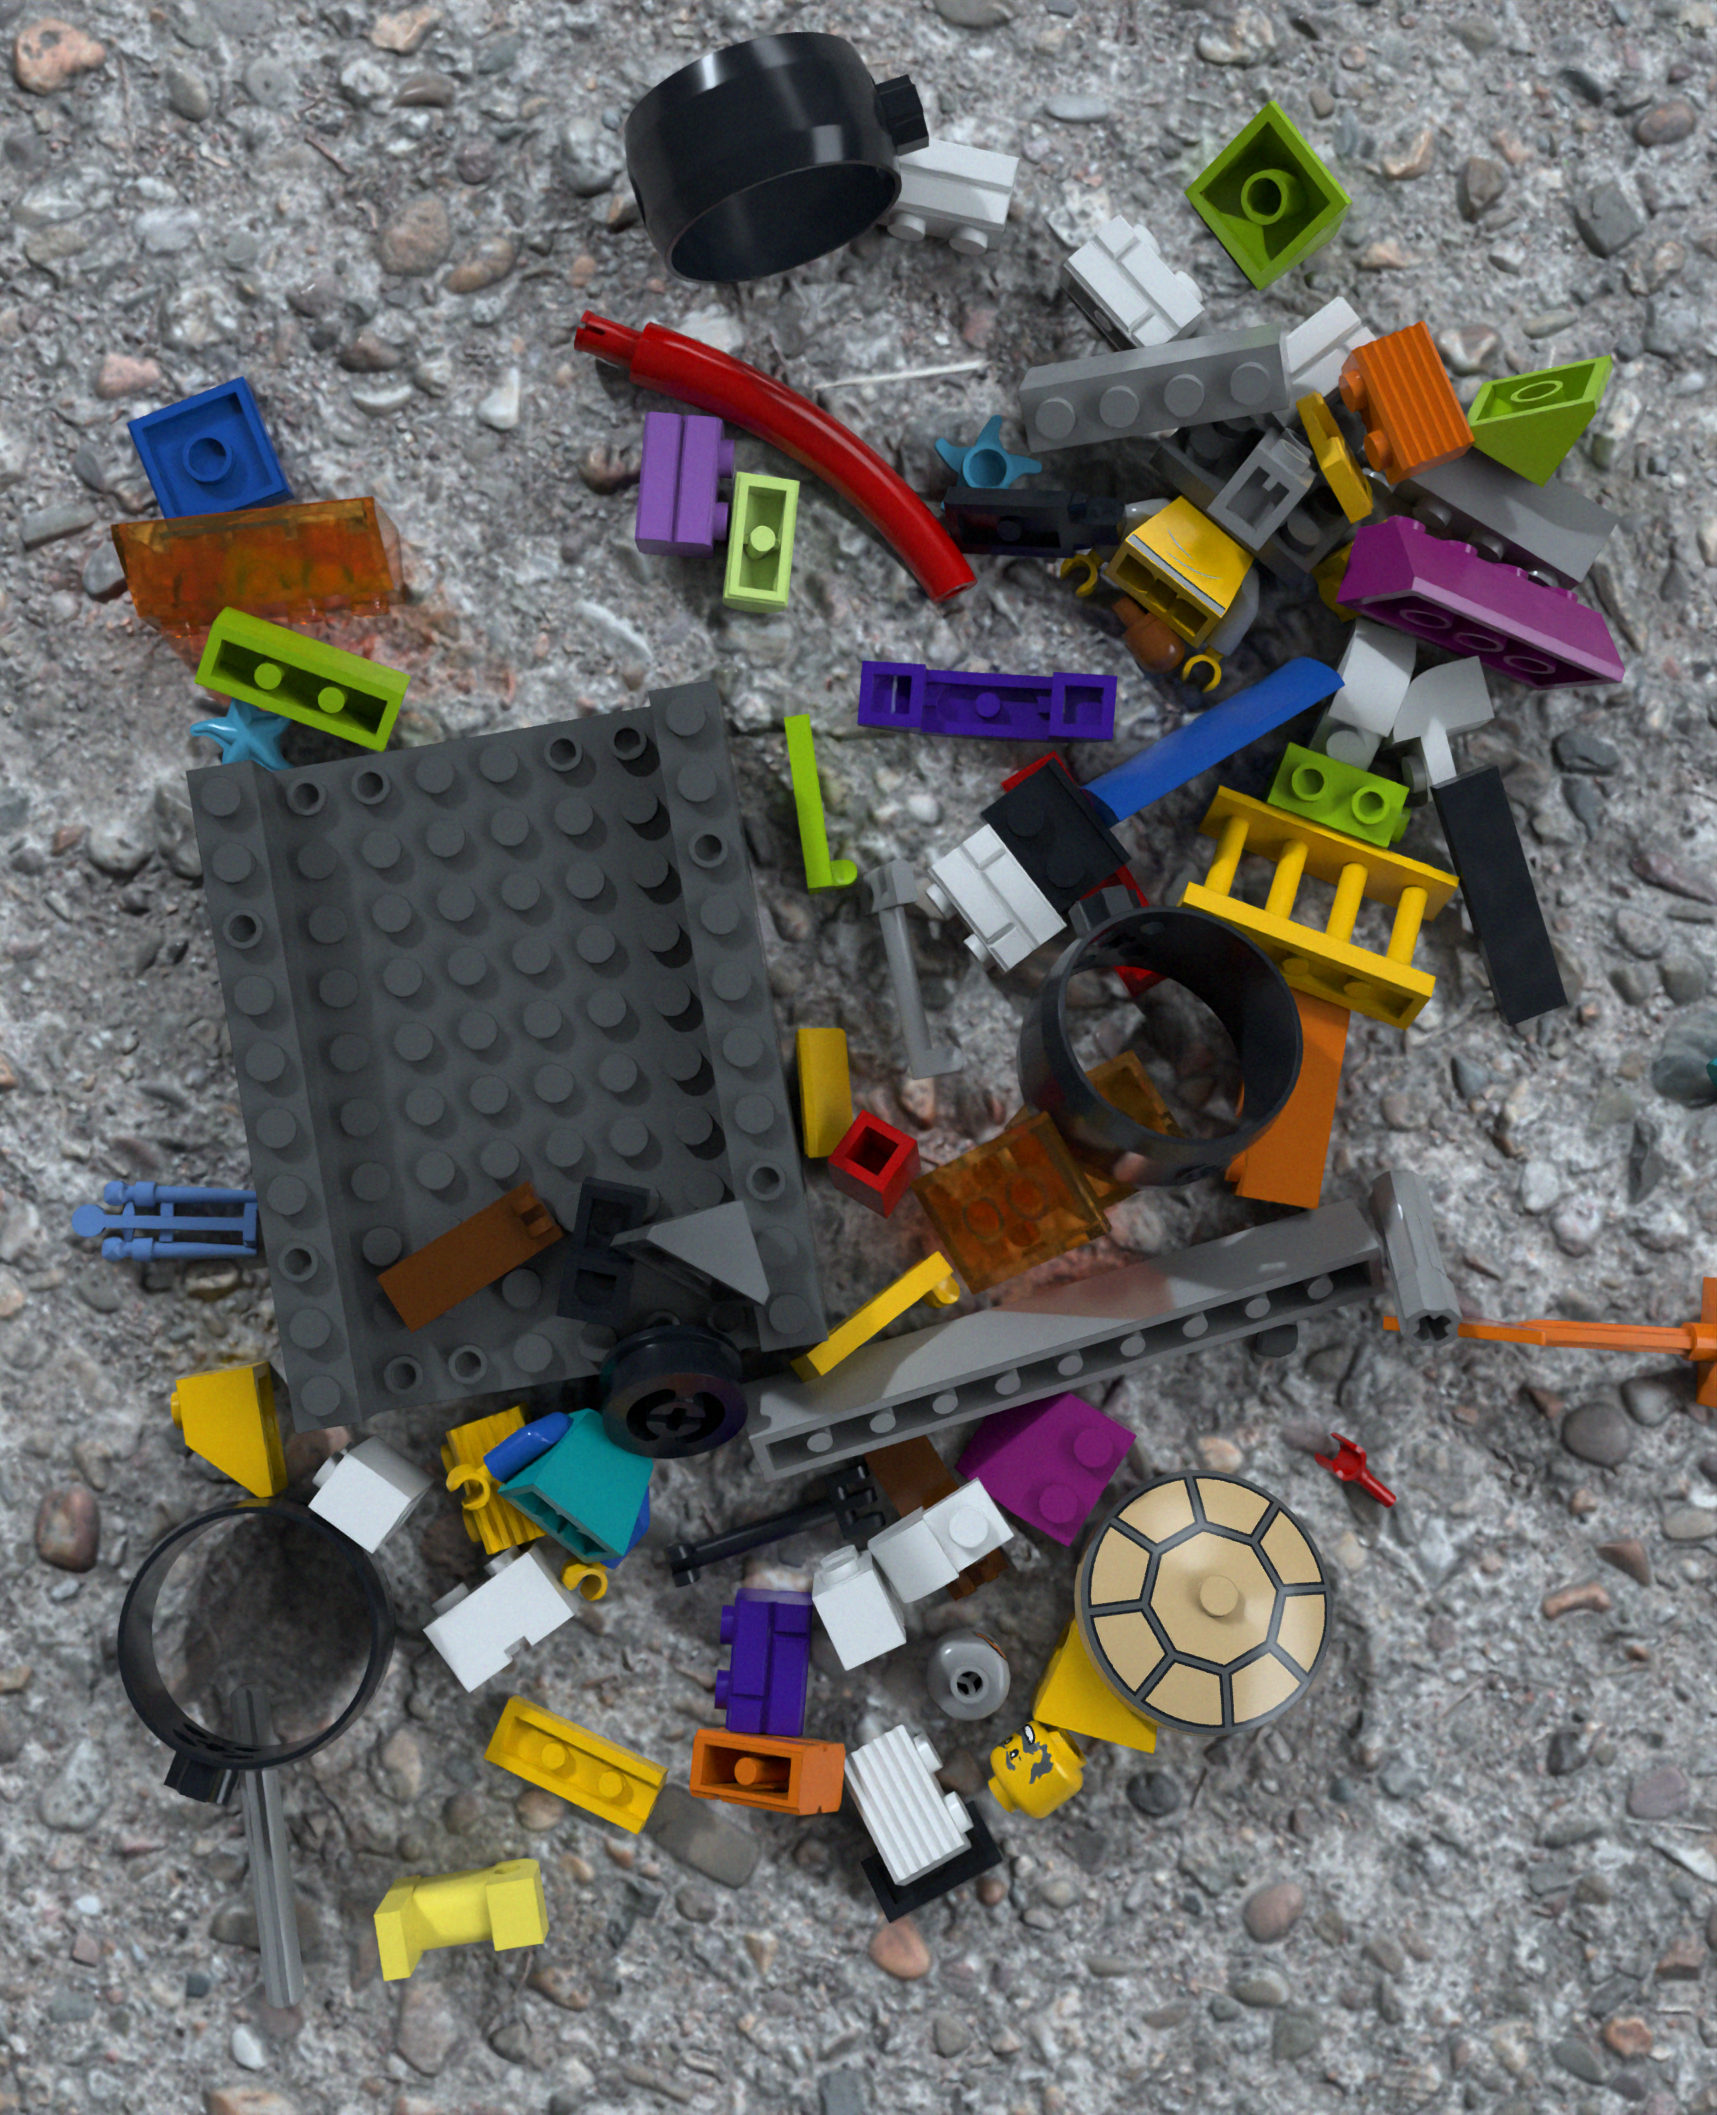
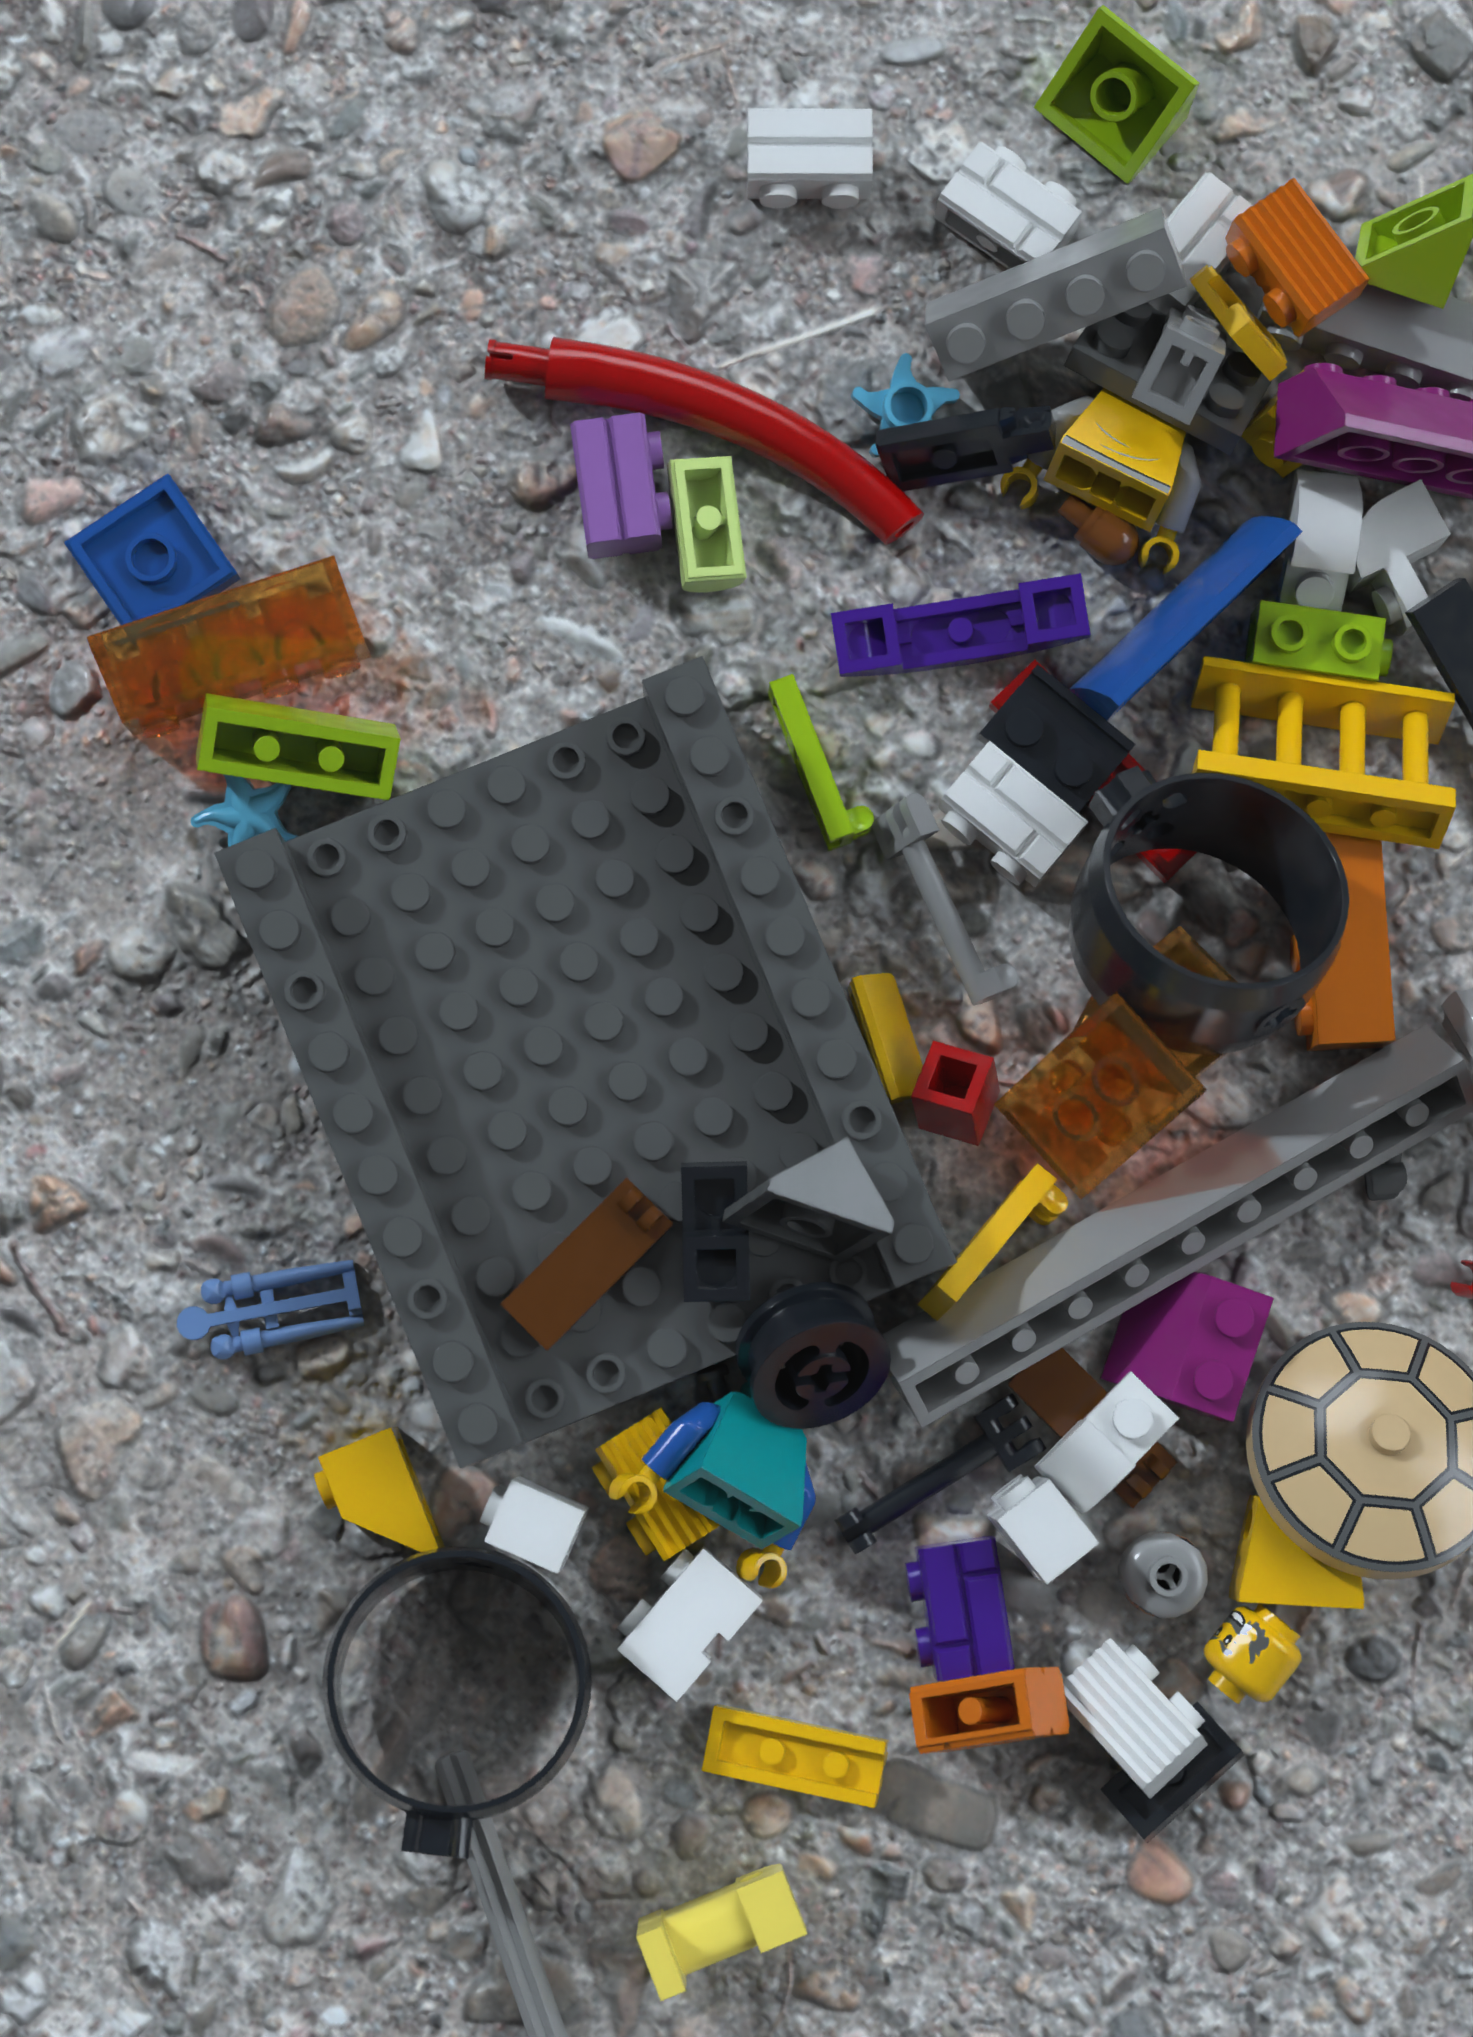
camera: 15 degrees left, 5 degrees down
(768, 156) = (640, 159): black cylinder -> none

